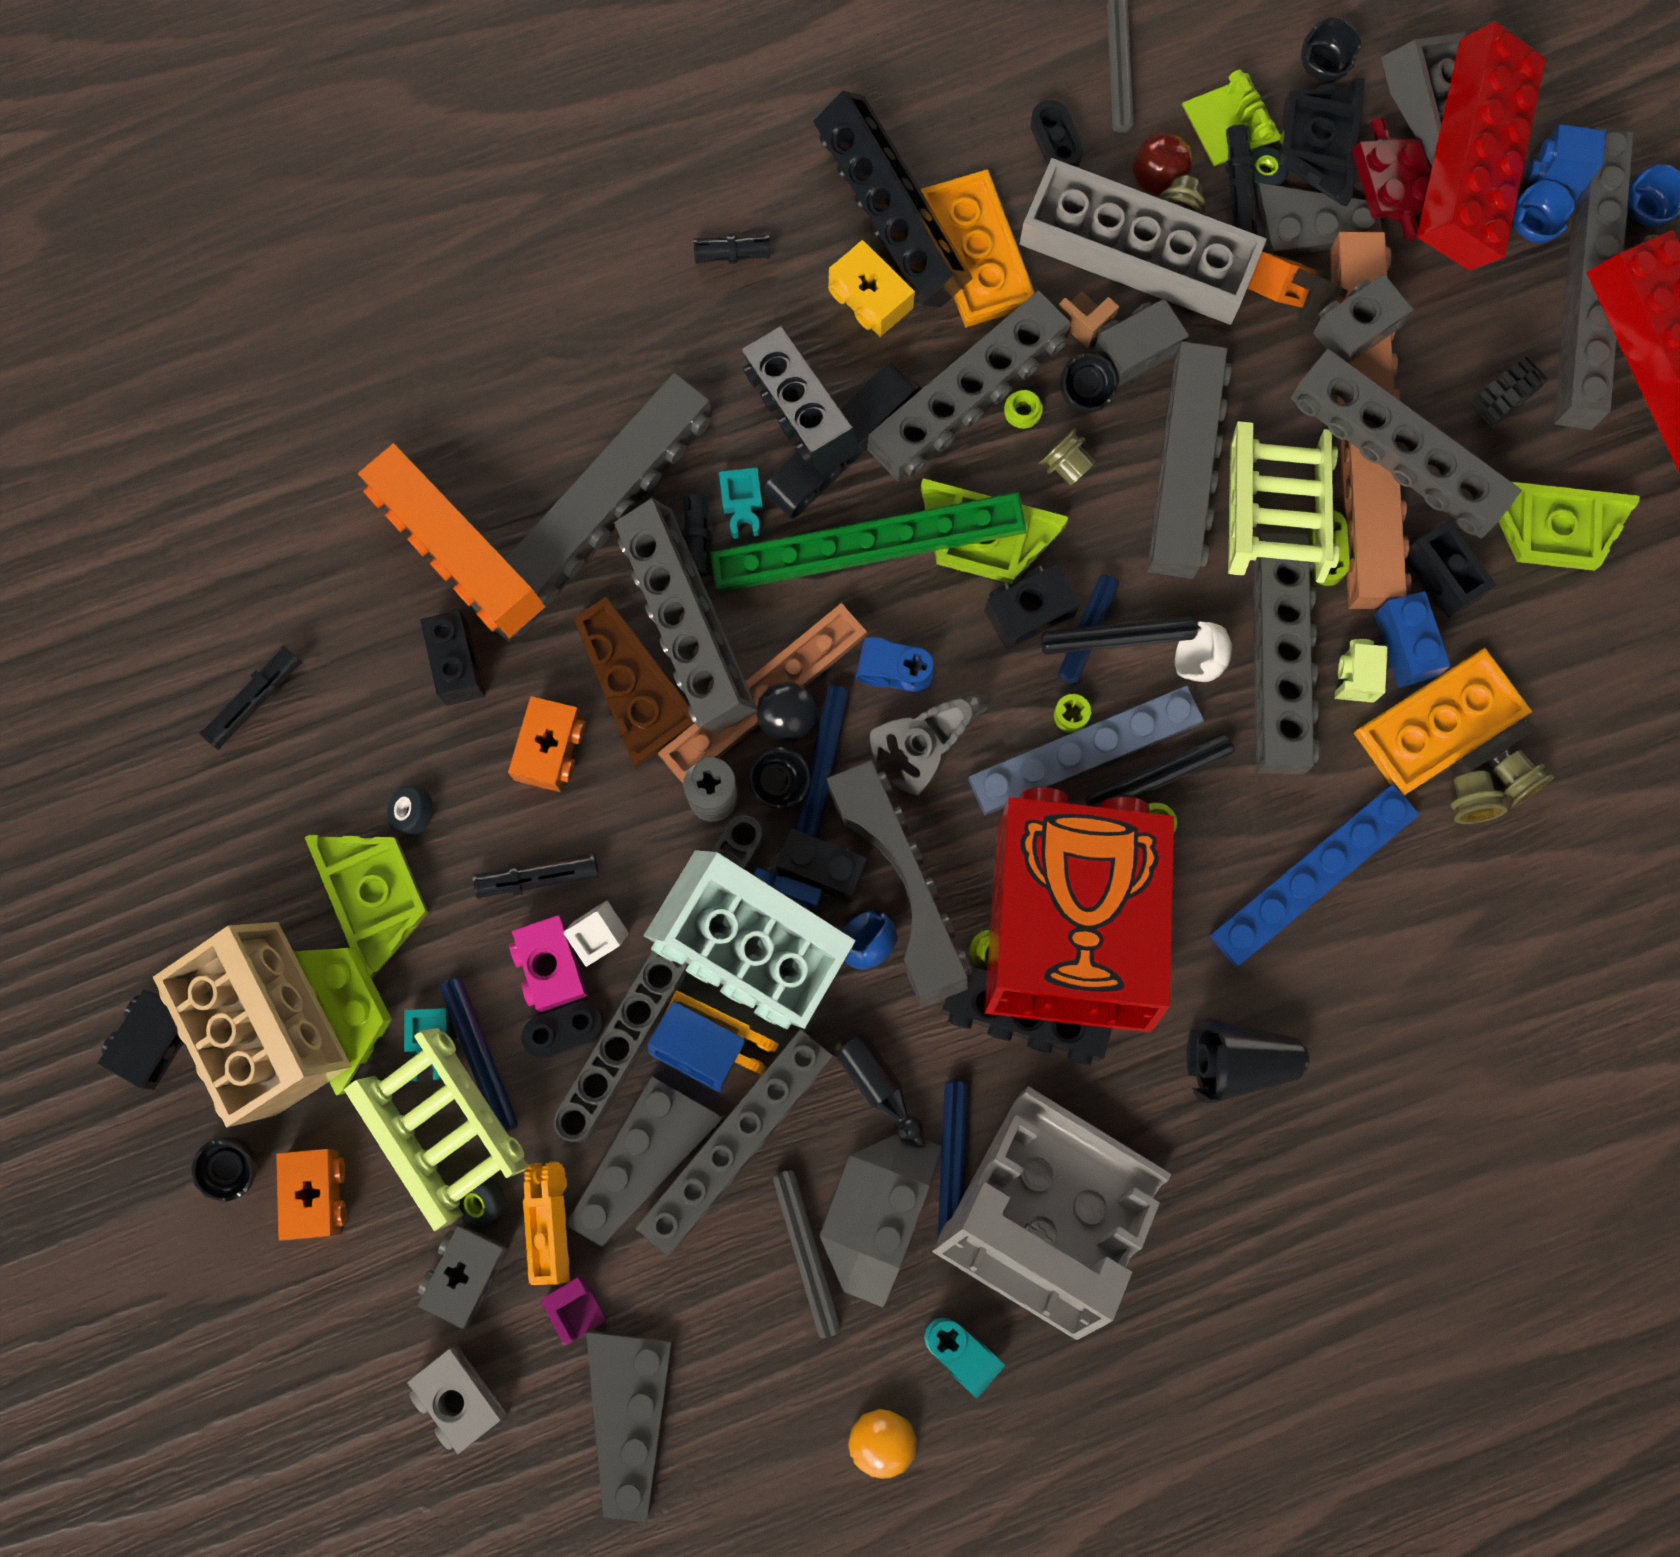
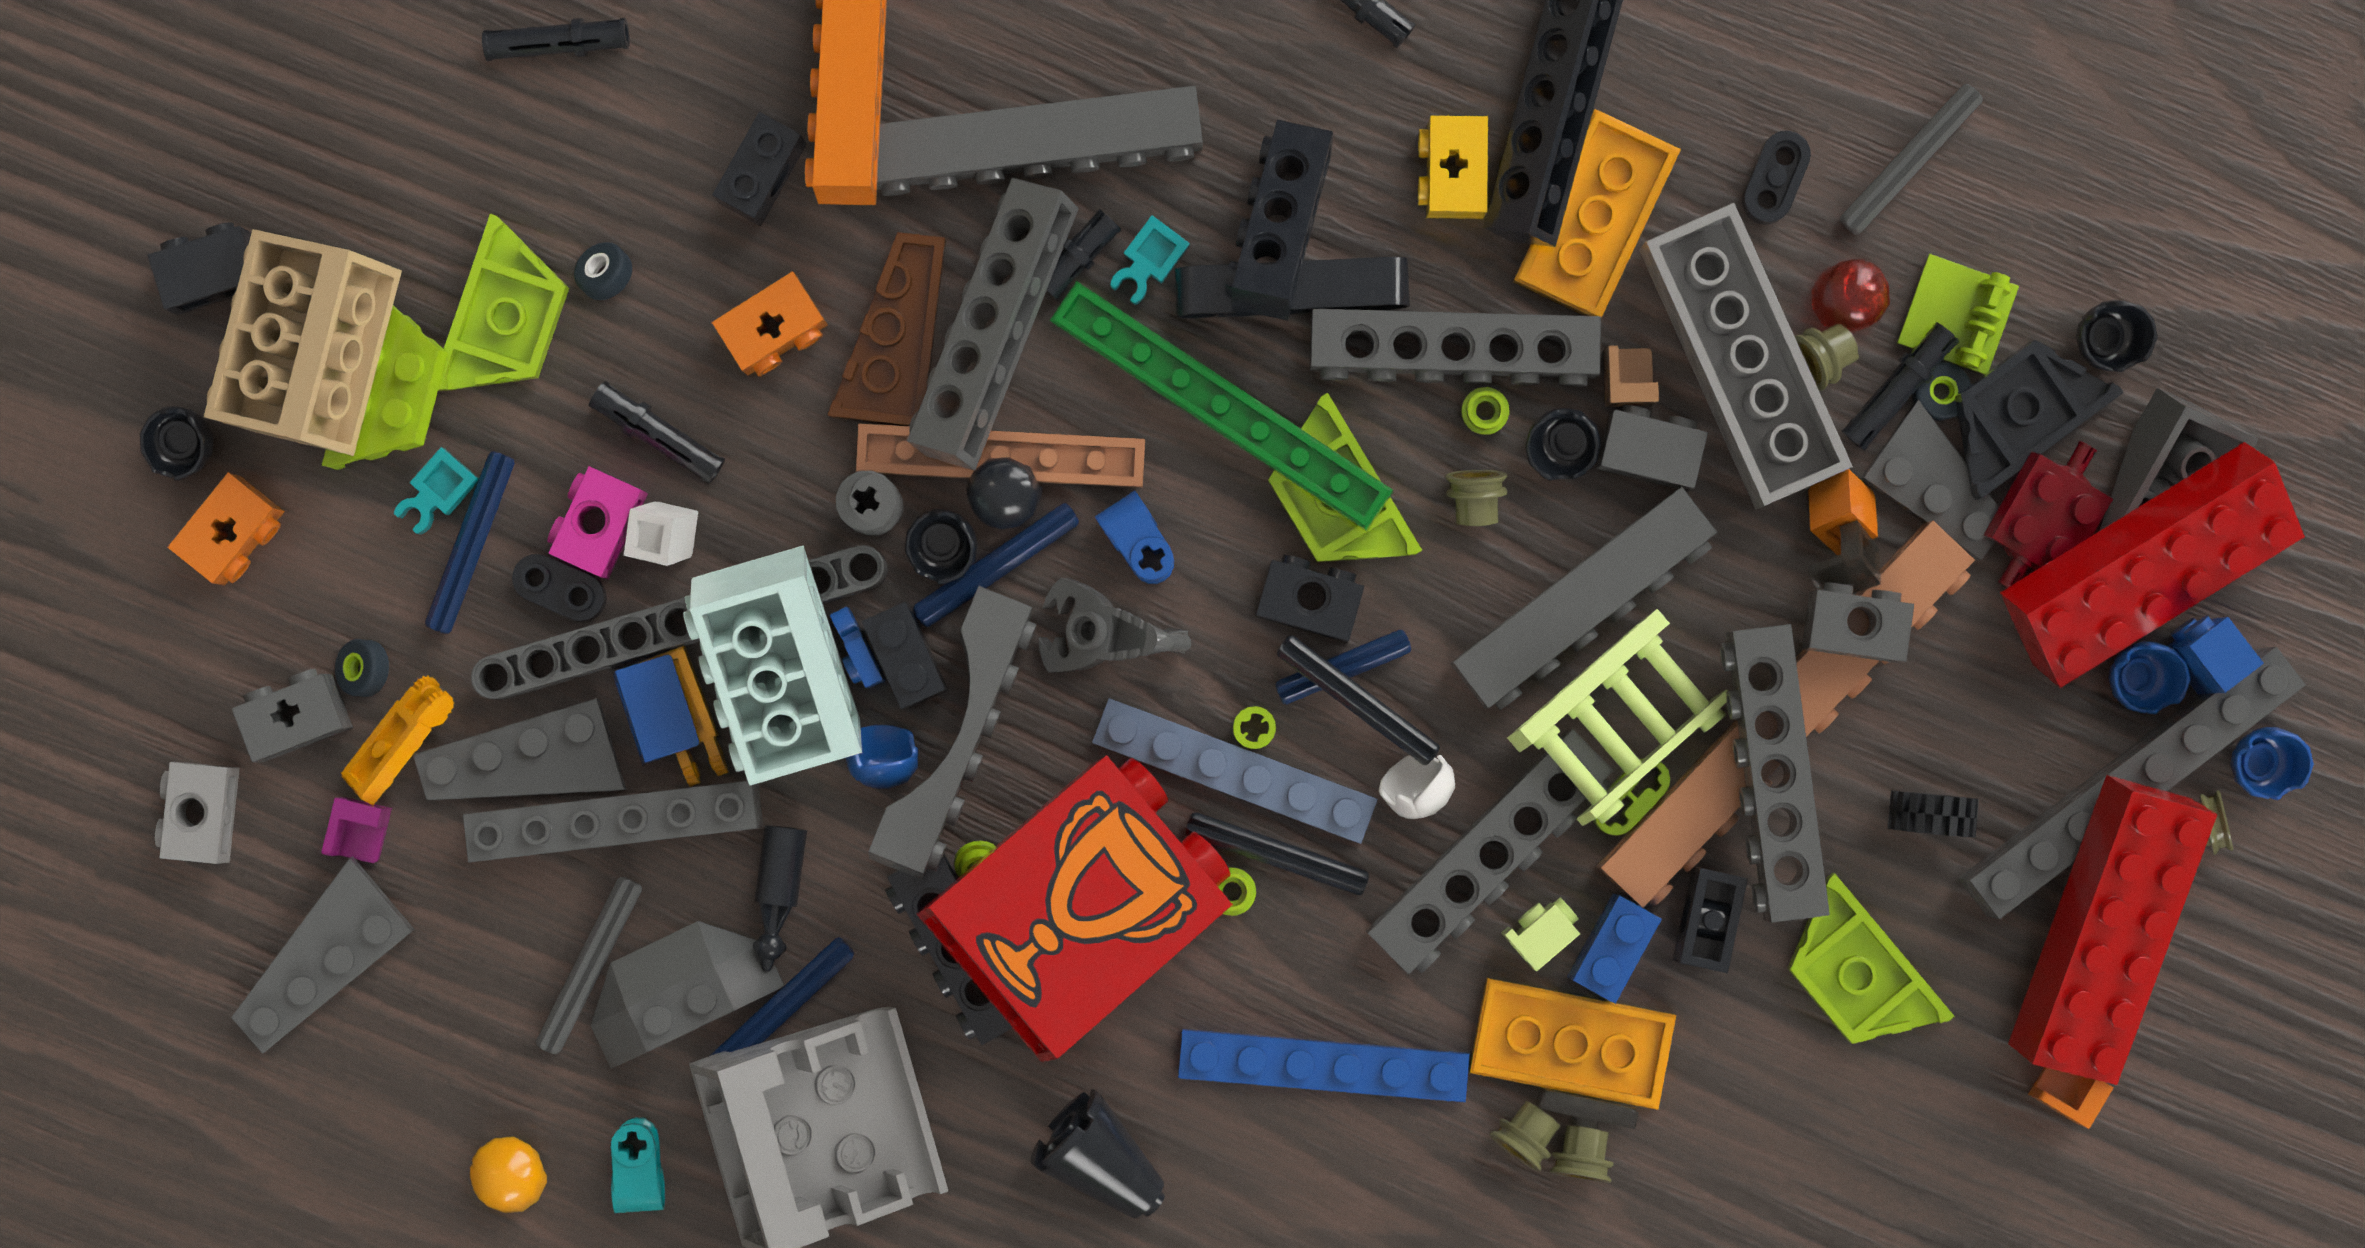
camera: 45 degrees right, 10 degrees up
(396, 1132) = (335, 567): yellowish green fence -> none

